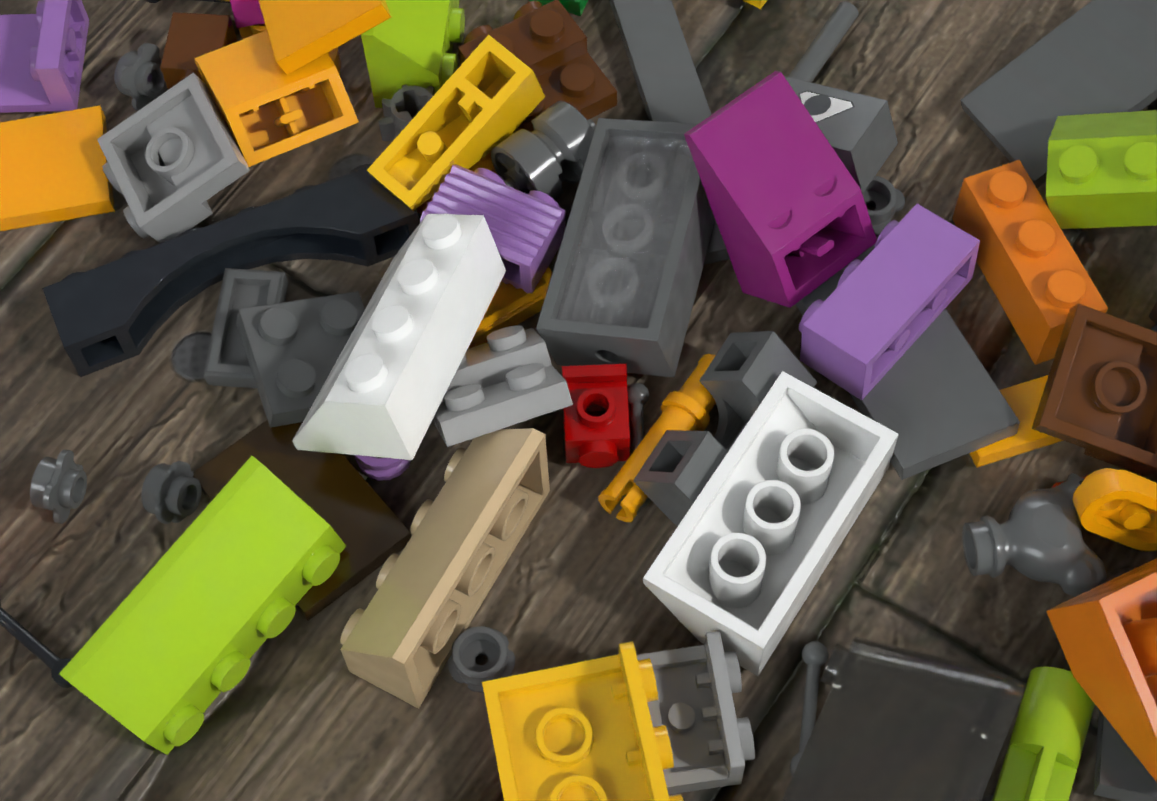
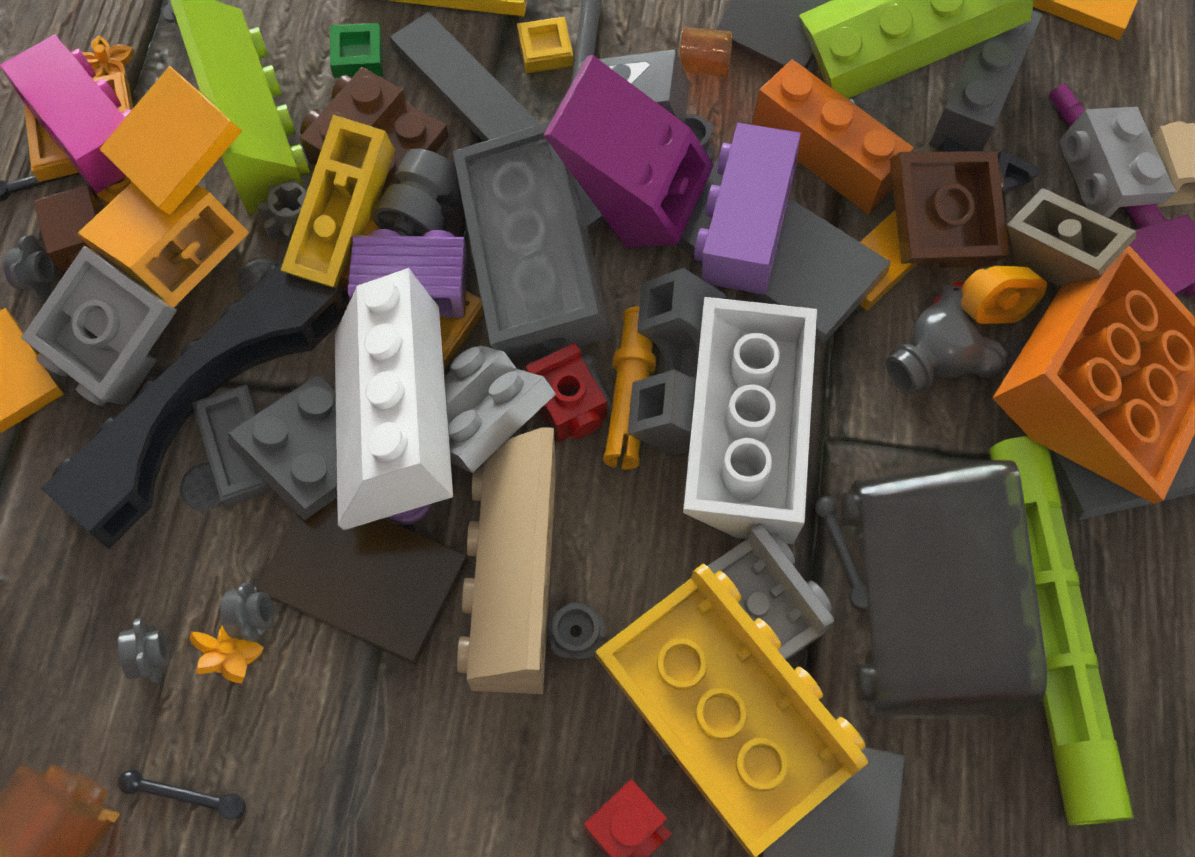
camera: 30 degrees left, 5 degrees up
(131, 524) = (225, 654): none -> light orange plant
(206, 608) = (338, 701): lime slope -> none
(767, 46) = (545, 45): none -> yellow tile
(936, 117) = (705, 51): none -> clear orange beam

